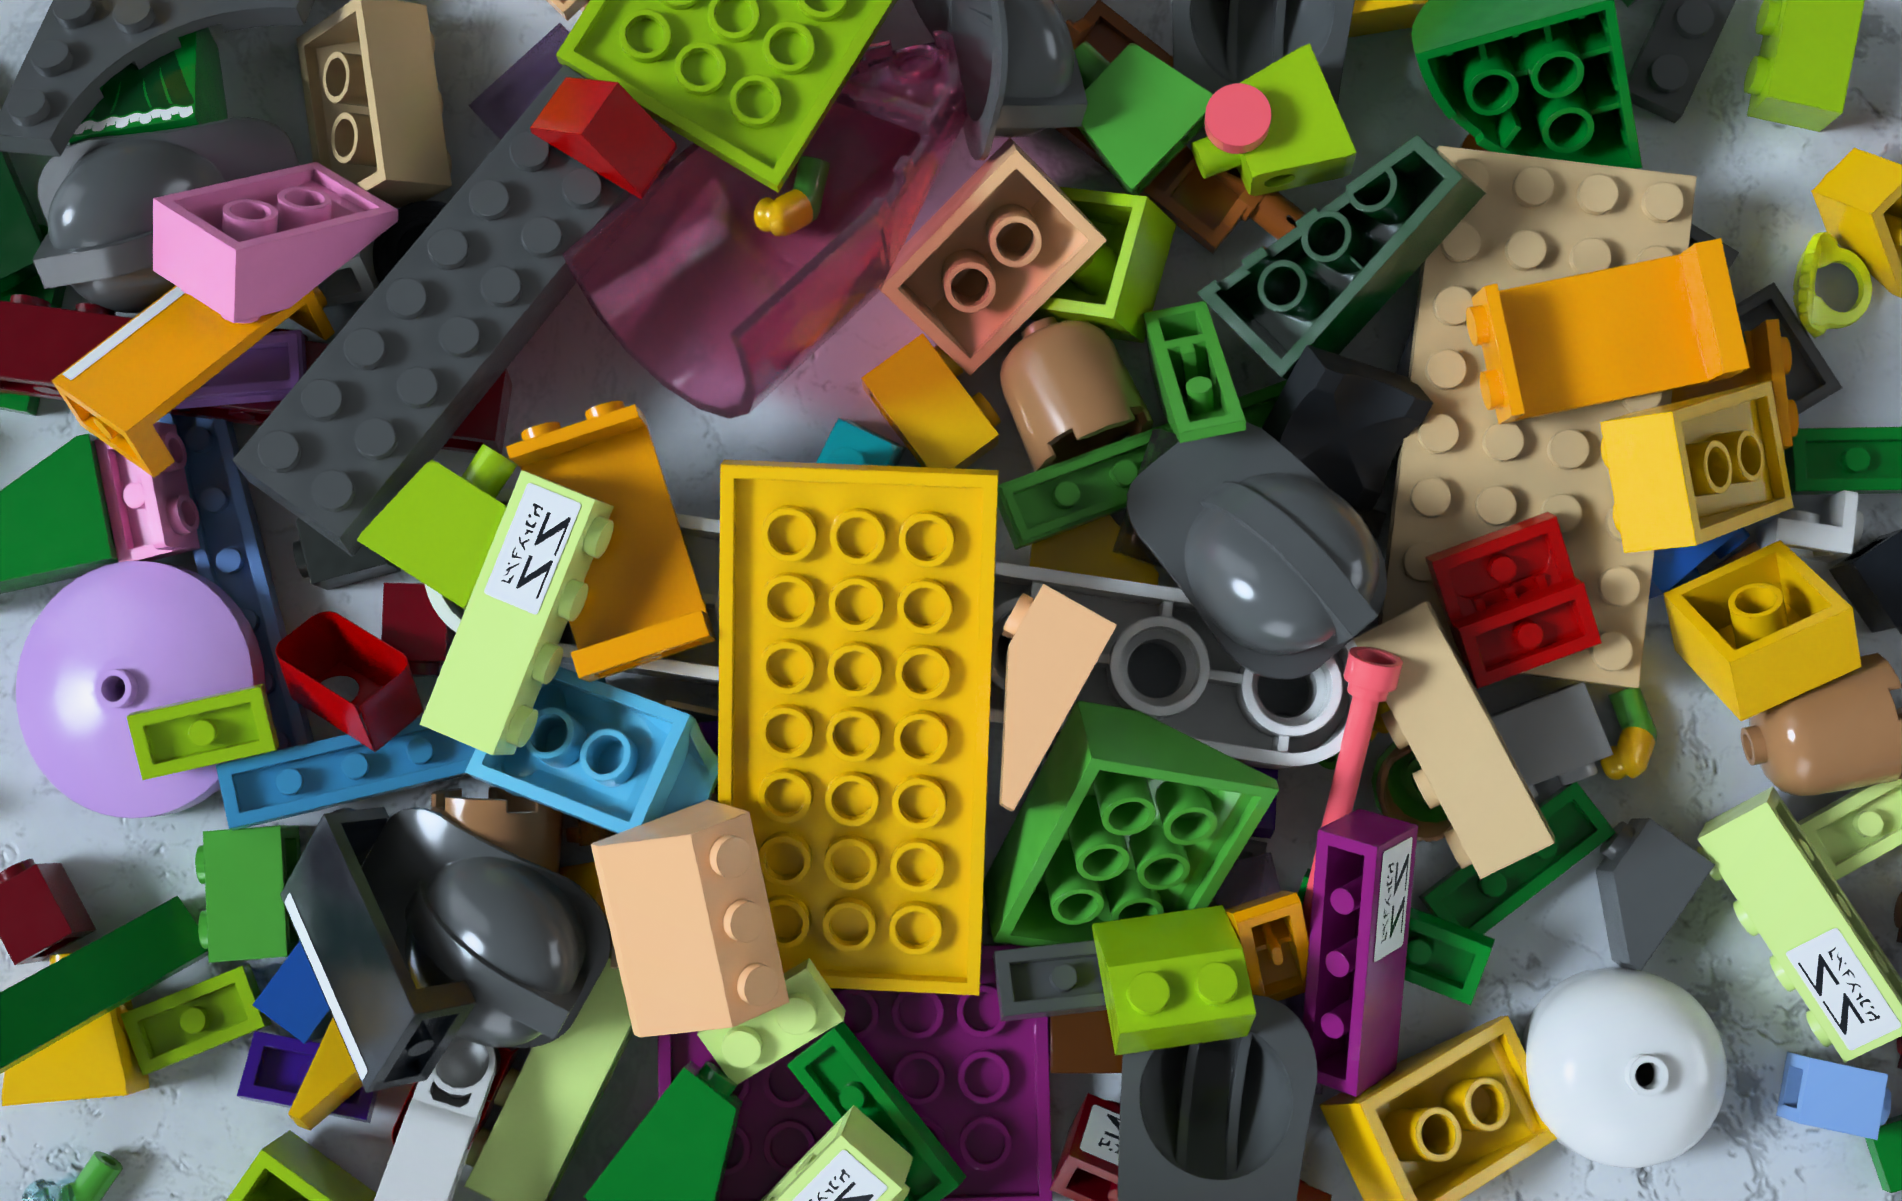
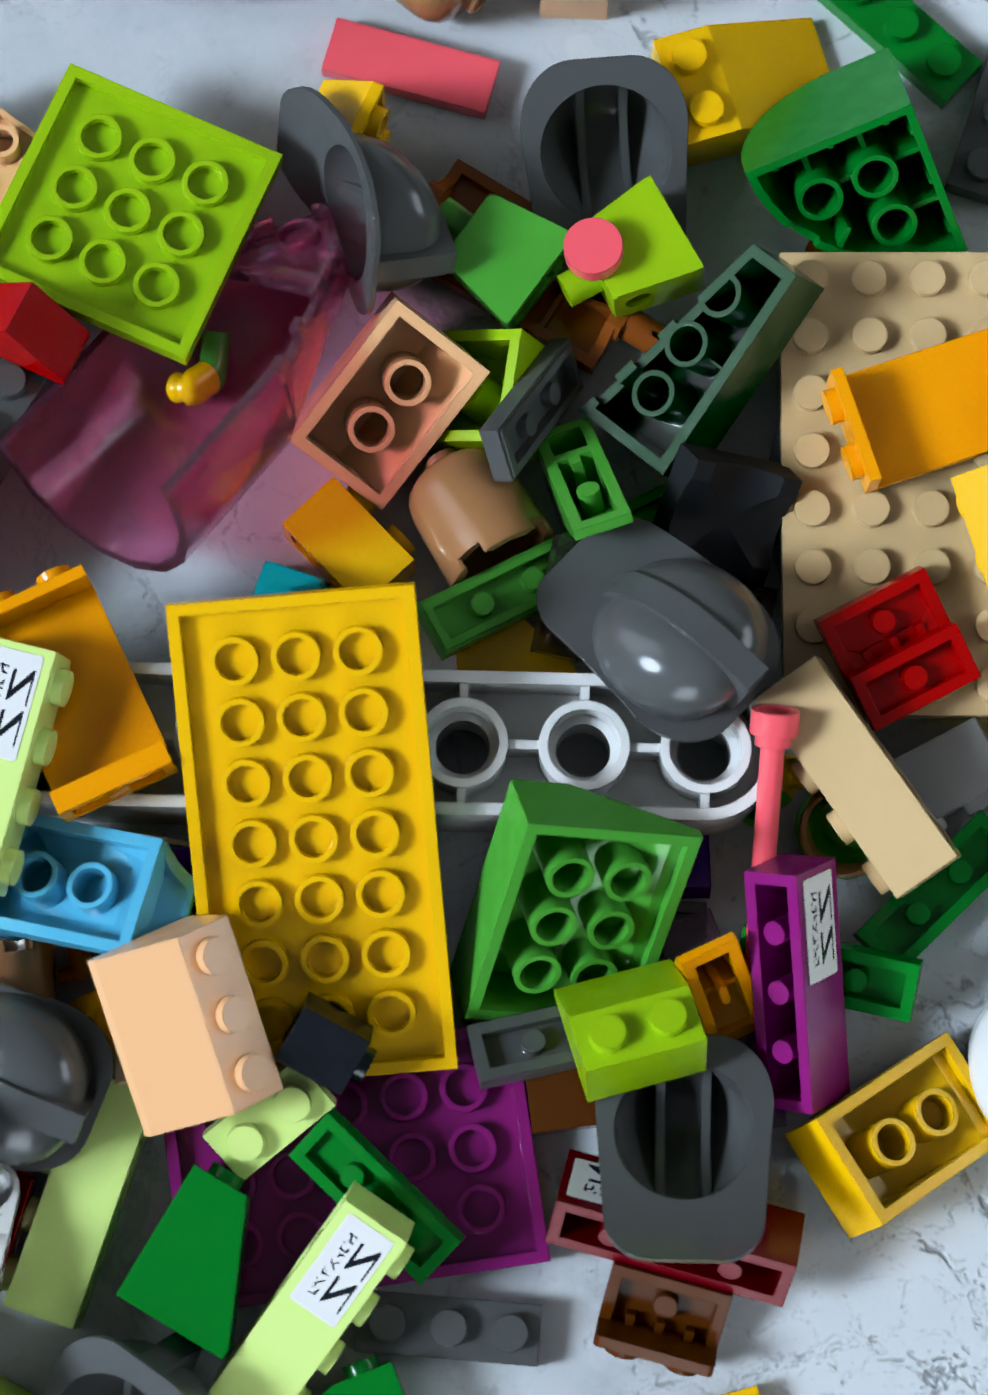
camera: 10 degrees left, 5 degrees down
(841, 957) = (327, 1044): none -> black brick
(1045, 669) = (482, 744): light nougat slope -> none
(1145, 287) = (531, 409): none -> dark grey tile

